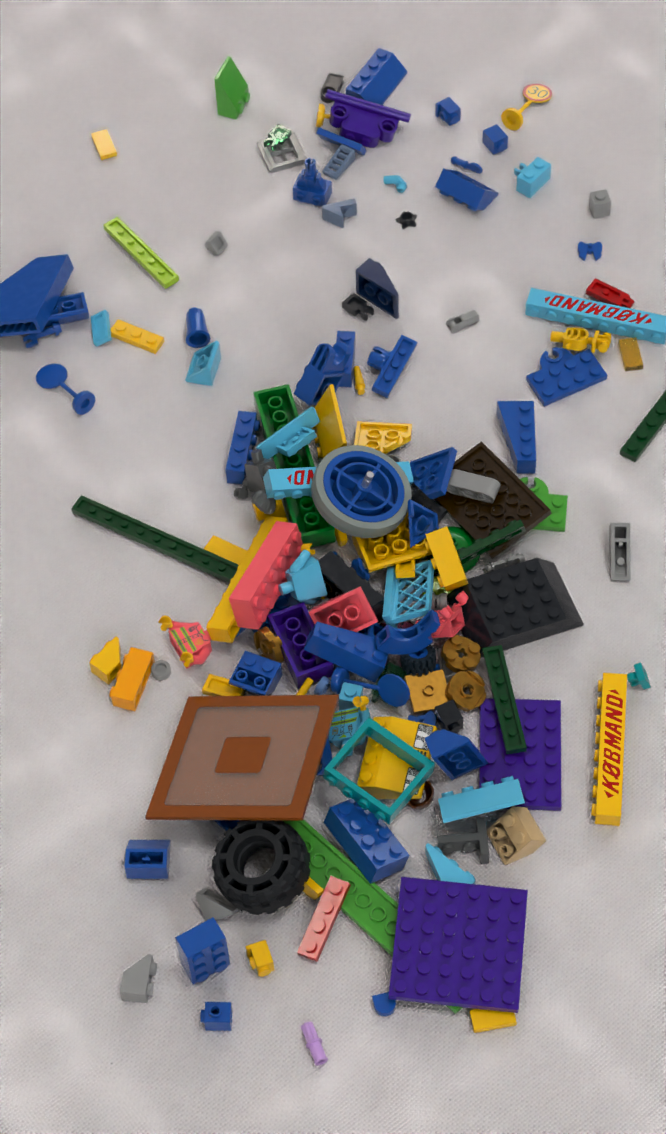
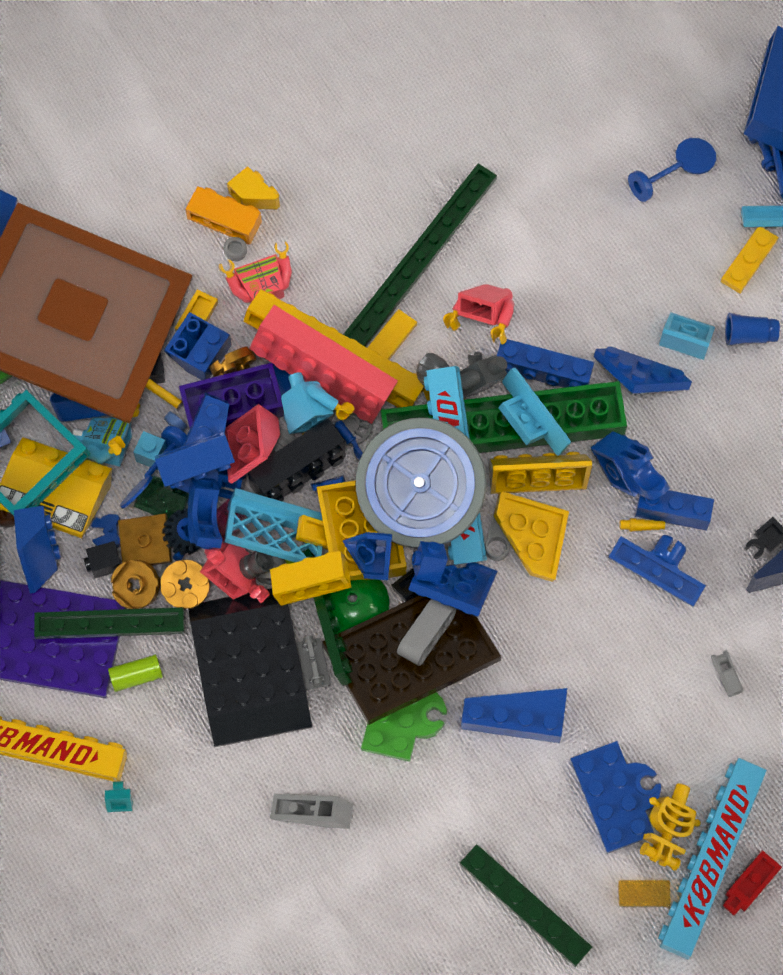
camera: 95 degrees right, 15 degrees up
(198, 483) = (486, 305): none -> coral torso
(242, 383) = (640, 373): none -> blue plate
(366, 640) = (194, 460): none -> blue brick
(421, 482) = (429, 561): none -> blue brick
(439, 600) = (255, 564): none -> dark grey wheel
(538, 680) = (135, 673): none -> lime pin

